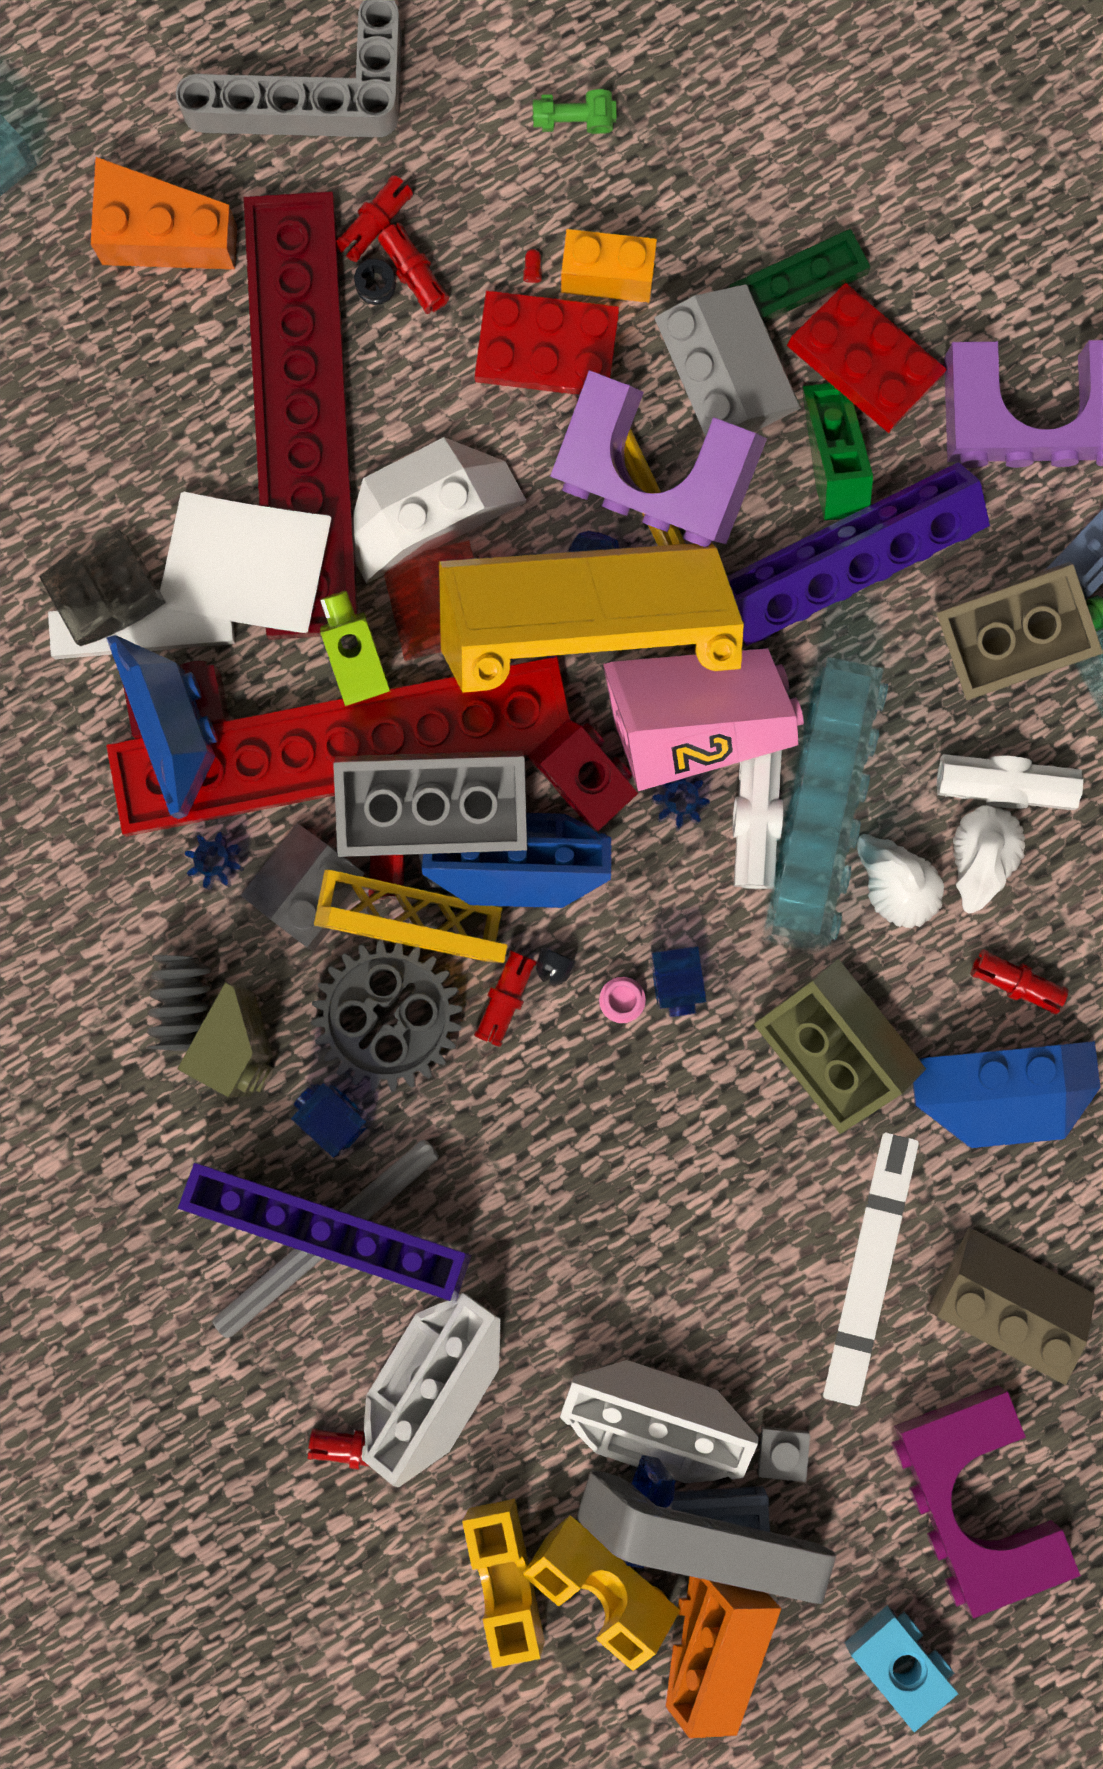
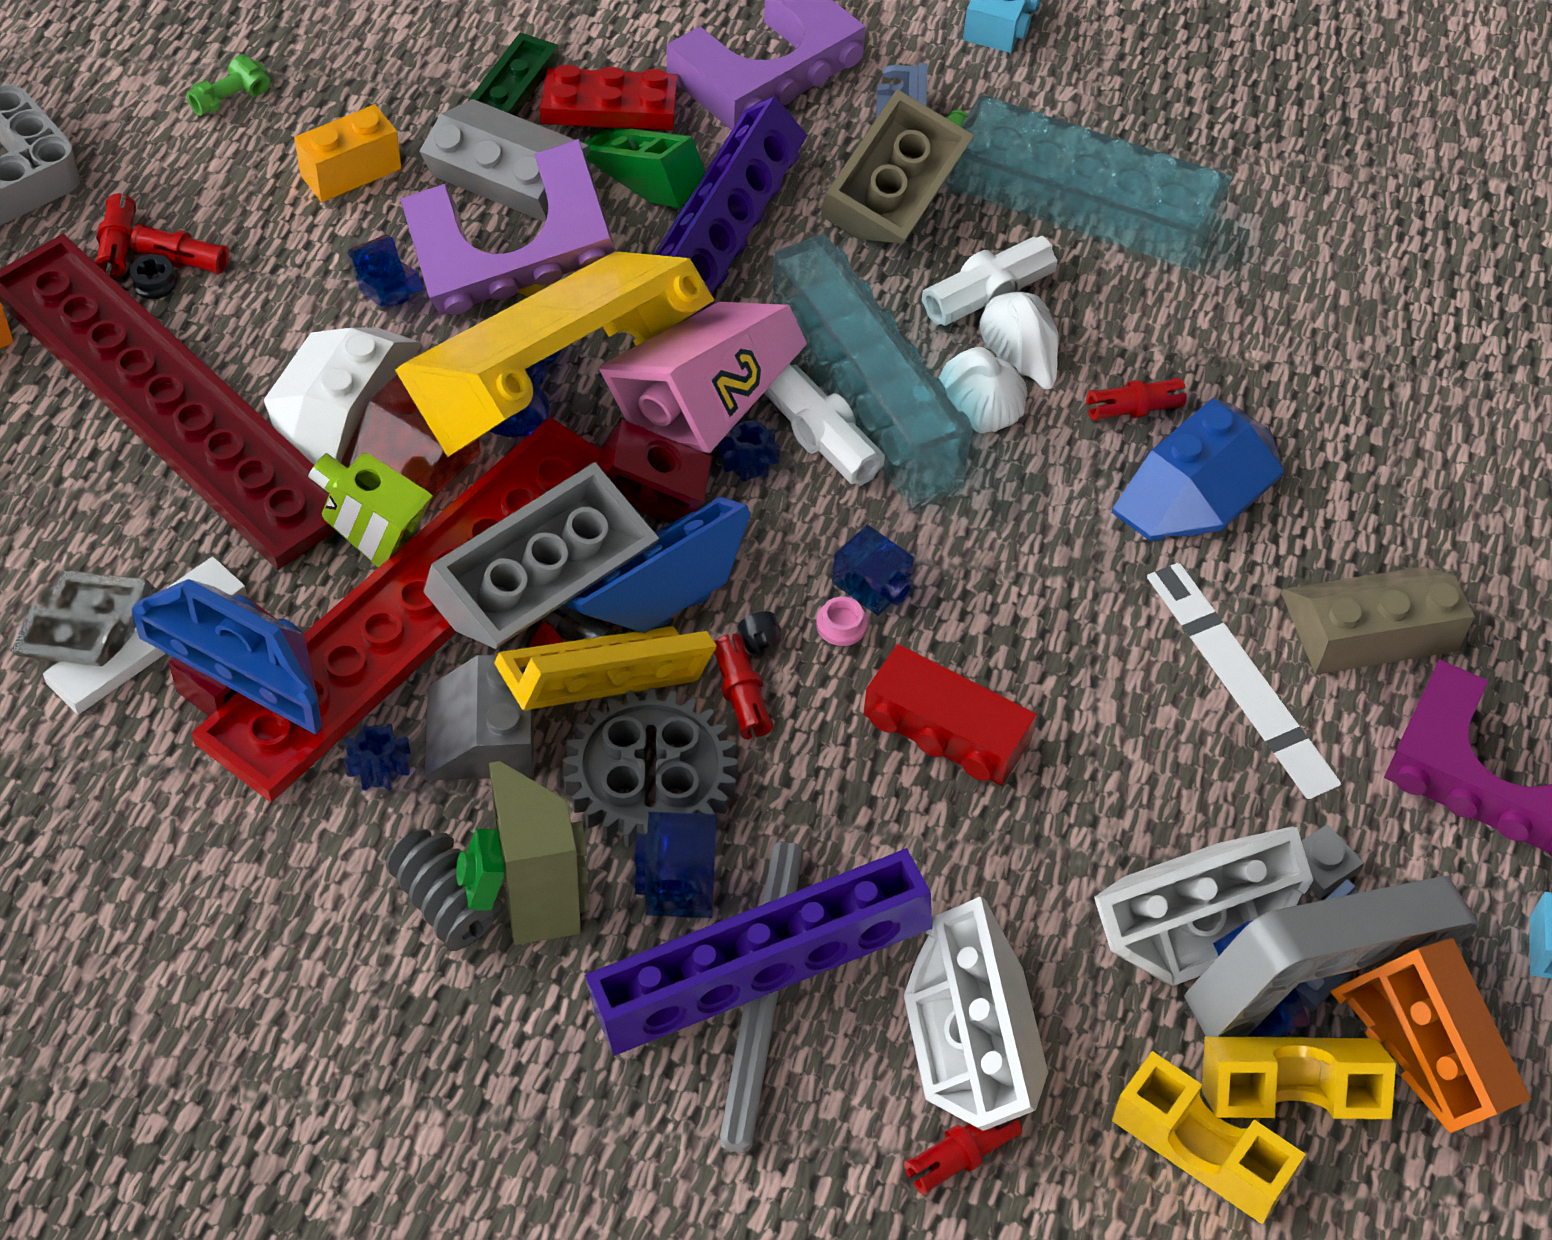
camera: 45 degrees left, 30 degrees down
(184, 1029) = (481, 869): none -> green plate
(244, 562) = (209, 516): white sticker -> none
(532, 269) = (282, 197): red piece -> none
(543, 416) = (382, 274): none -> clear blue bracket
(544, 342) = (316, 240): red plate -> none
(623, 1141) = (949, 715): none -> red brick
(840, 1047) = (1050, 531): olive slope -> none

